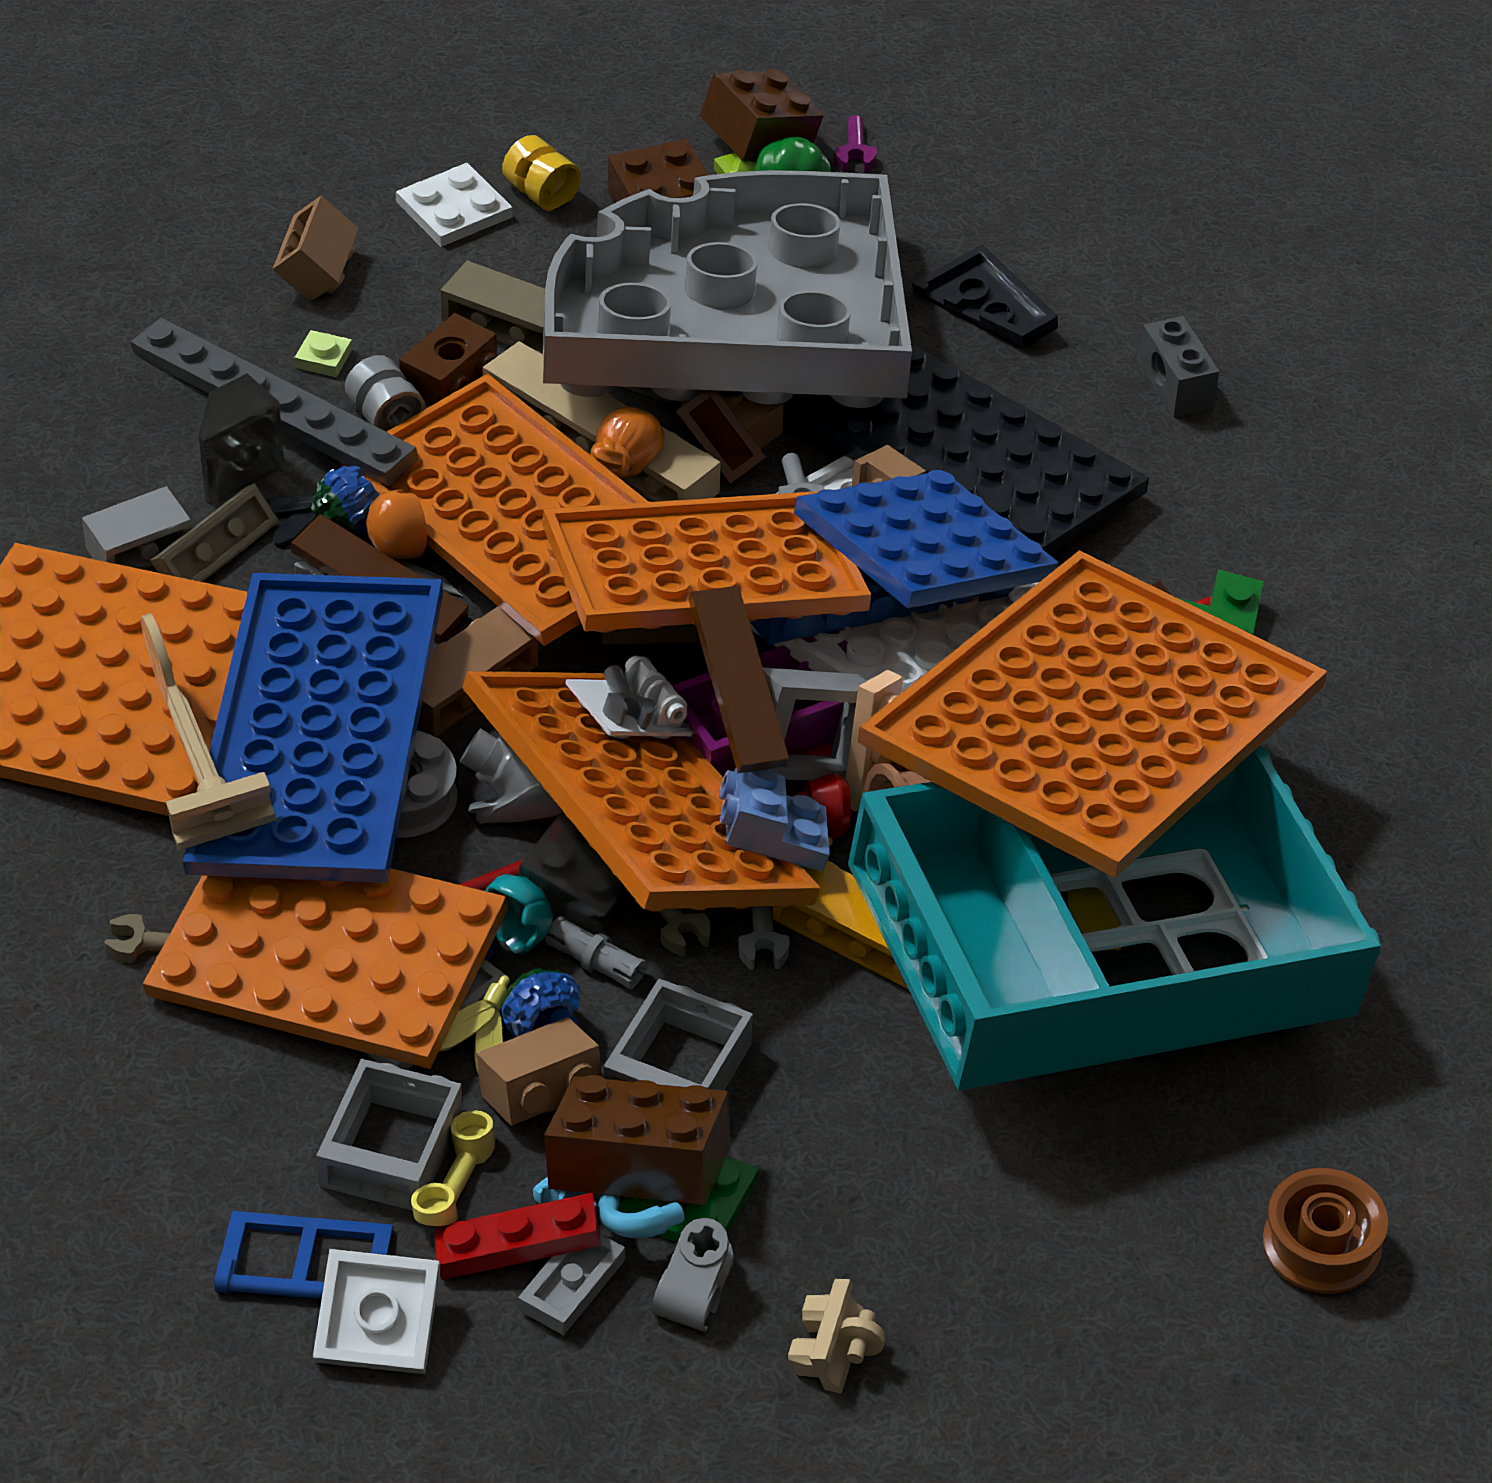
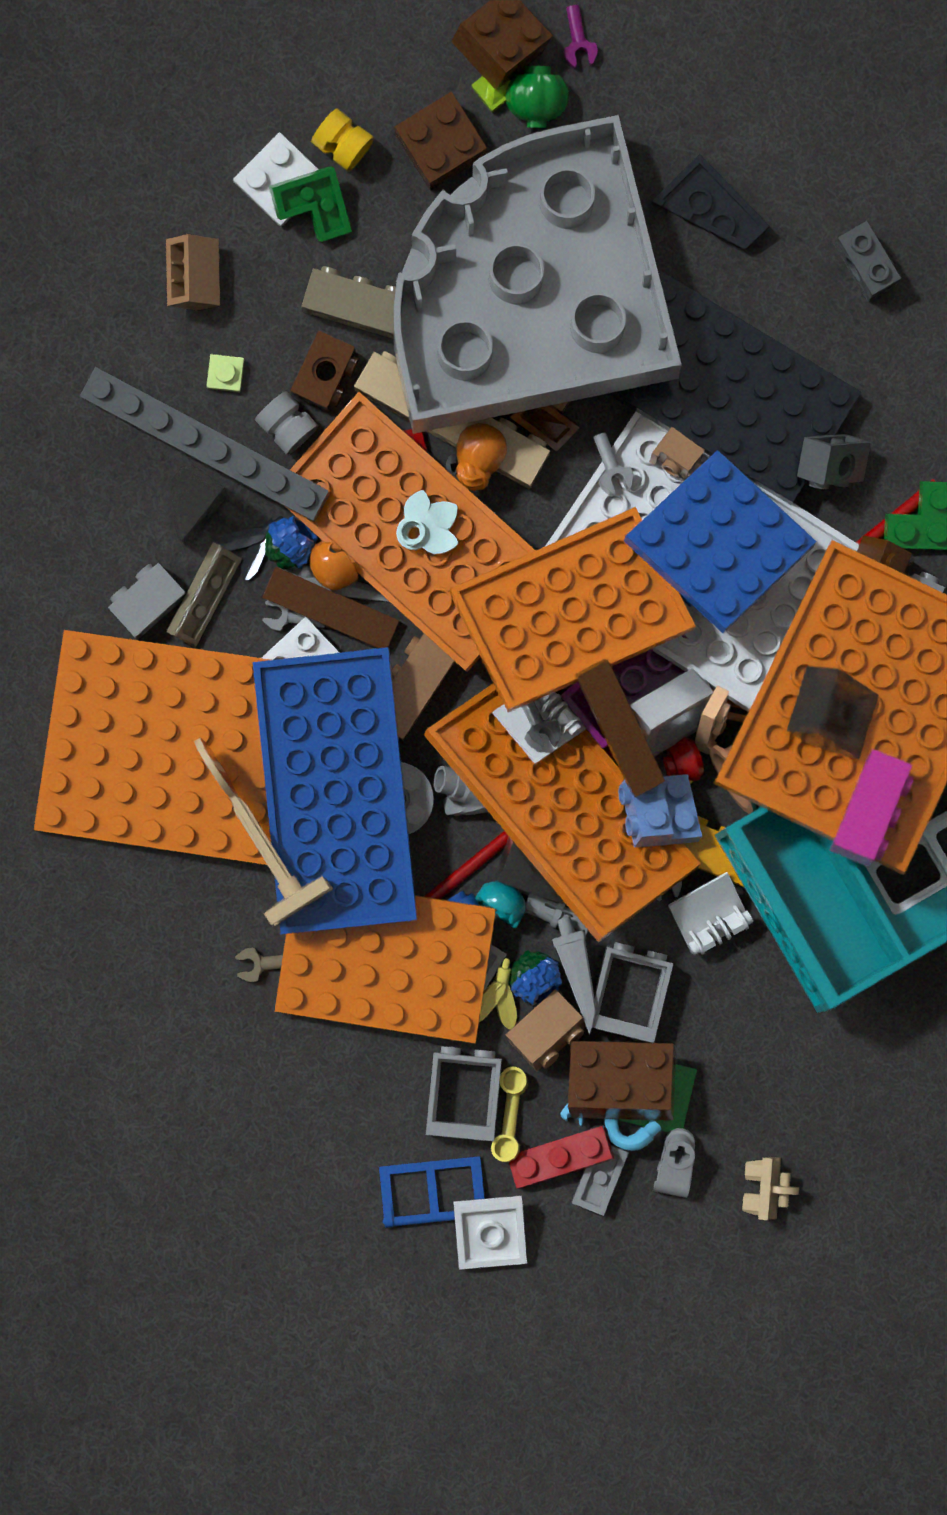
camera: 15 degrees left, 40 degrees up
(493, 203) = (319, 195): none -> green plate
(534, 485) = (433, 522): none -> light aqua plate
(605, 987) = (574, 958): none -> light grey bar
(821, 976) = (710, 914): none -> white hinge
(1045, 677) = (832, 711): none -> clear smoke slope
(1080, 775) = (872, 808): none -> dark pink brick
(1099, 518) = (833, 460): none -> dark grey brick

